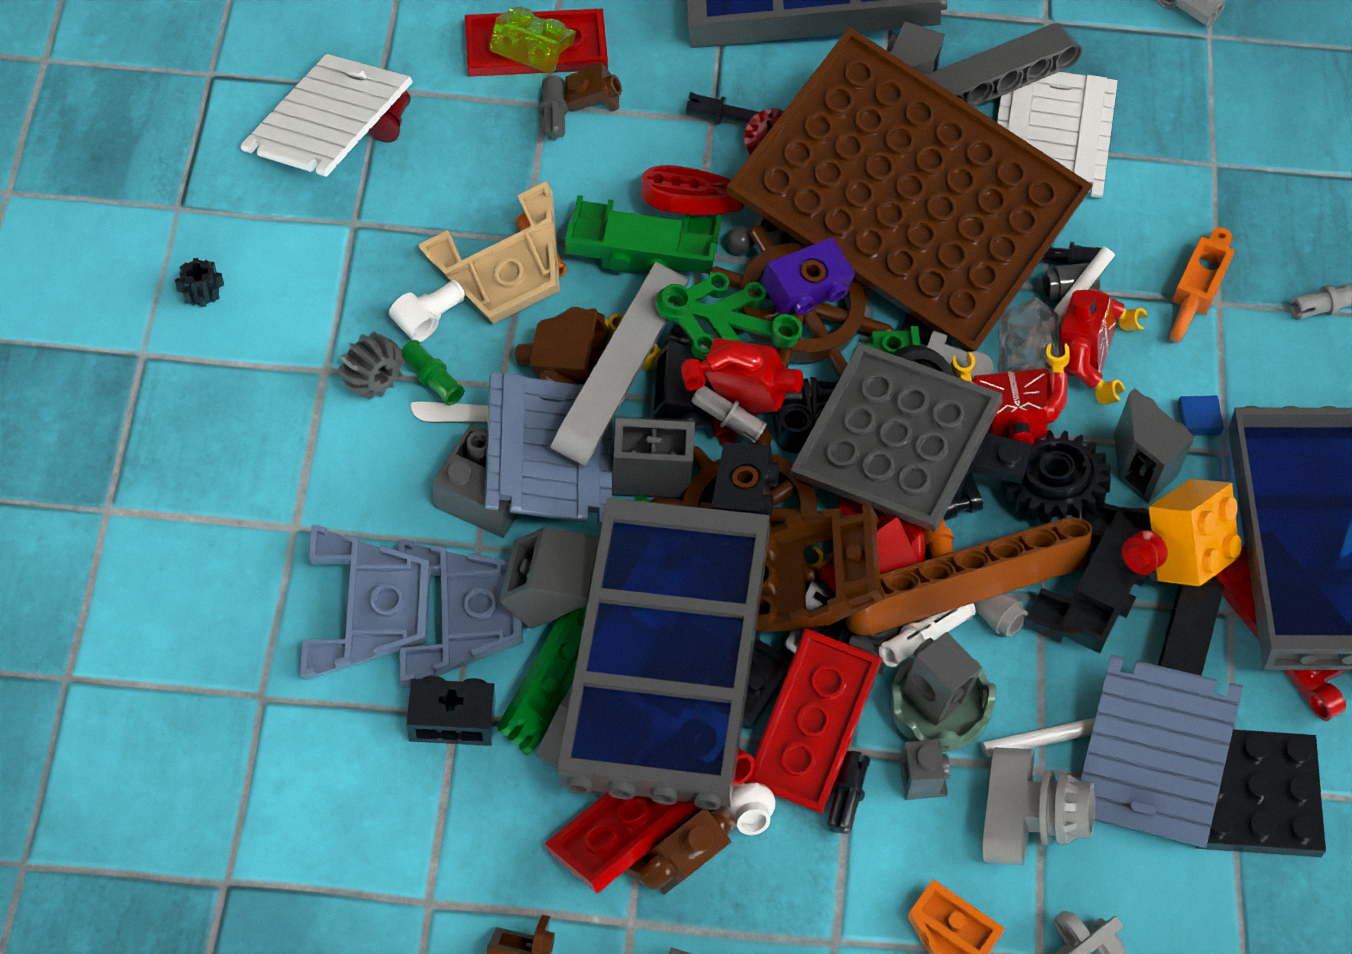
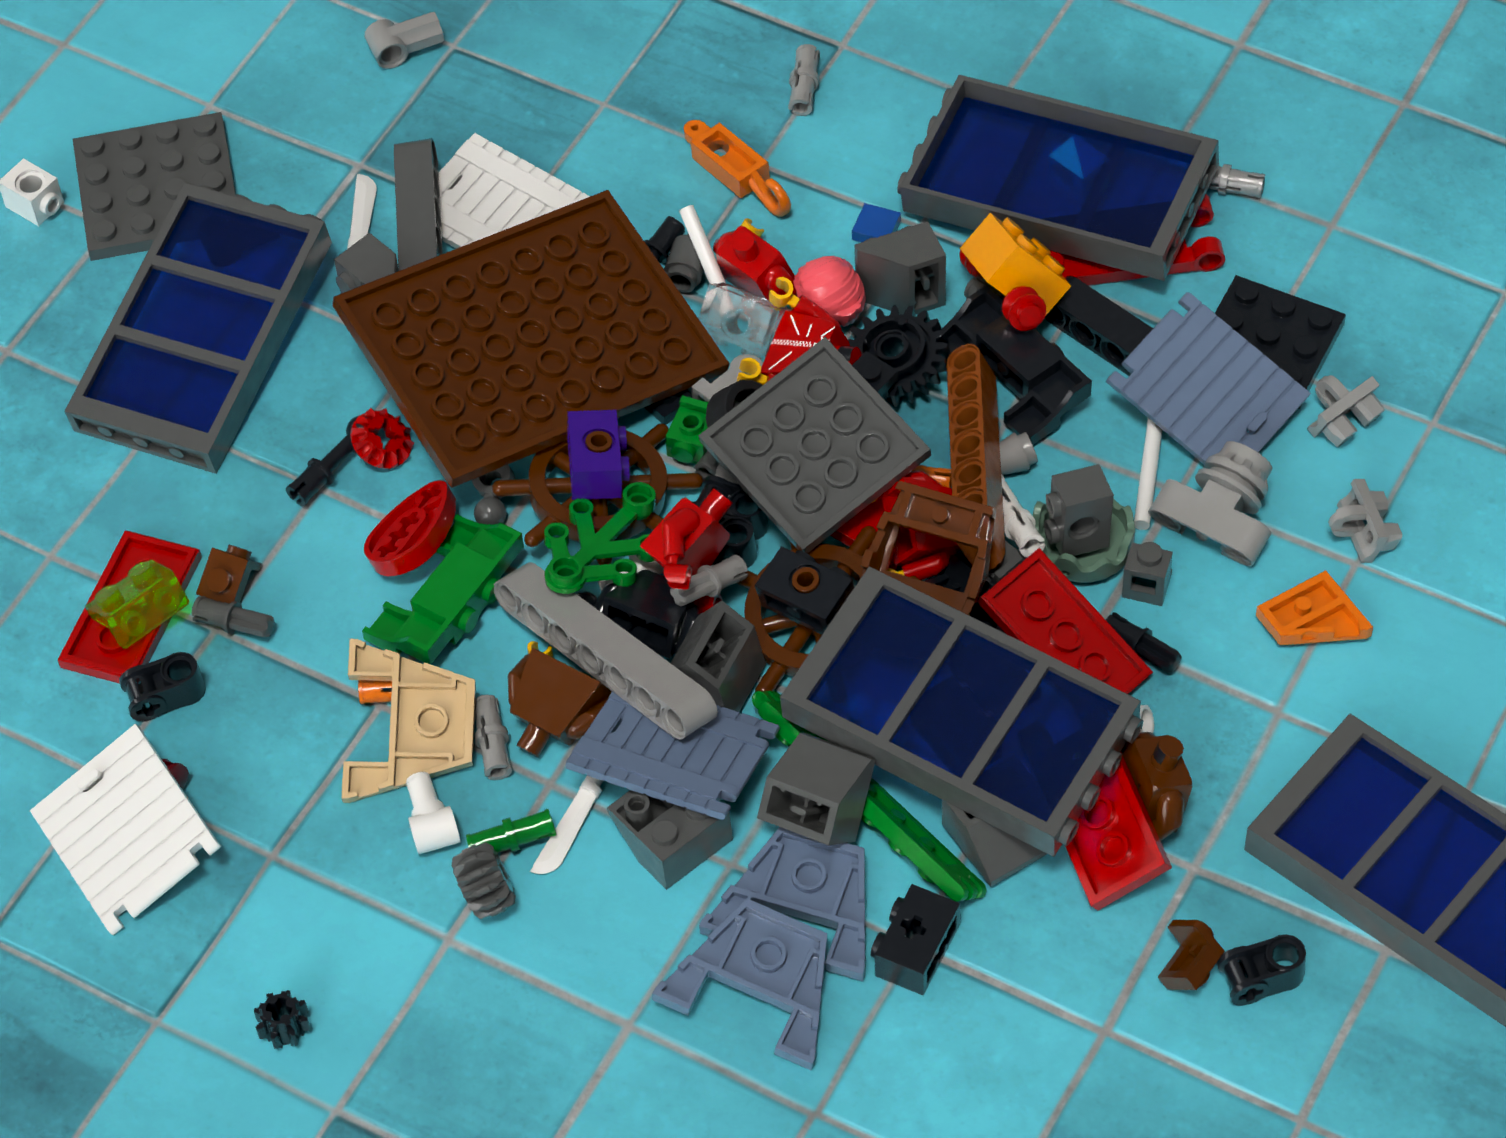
camera: 60 degrees left, 5 degrees down
(468, 89) = (162, 685): none -> black piece
(520, 324) = (491, 738): none -> light grey pin
(986, 42) = (362, 208): none -> white piece
(1095, 398) = (833, 286): none -> coral hair
(1225, 896) = (1339, 403): none -> light grey hips

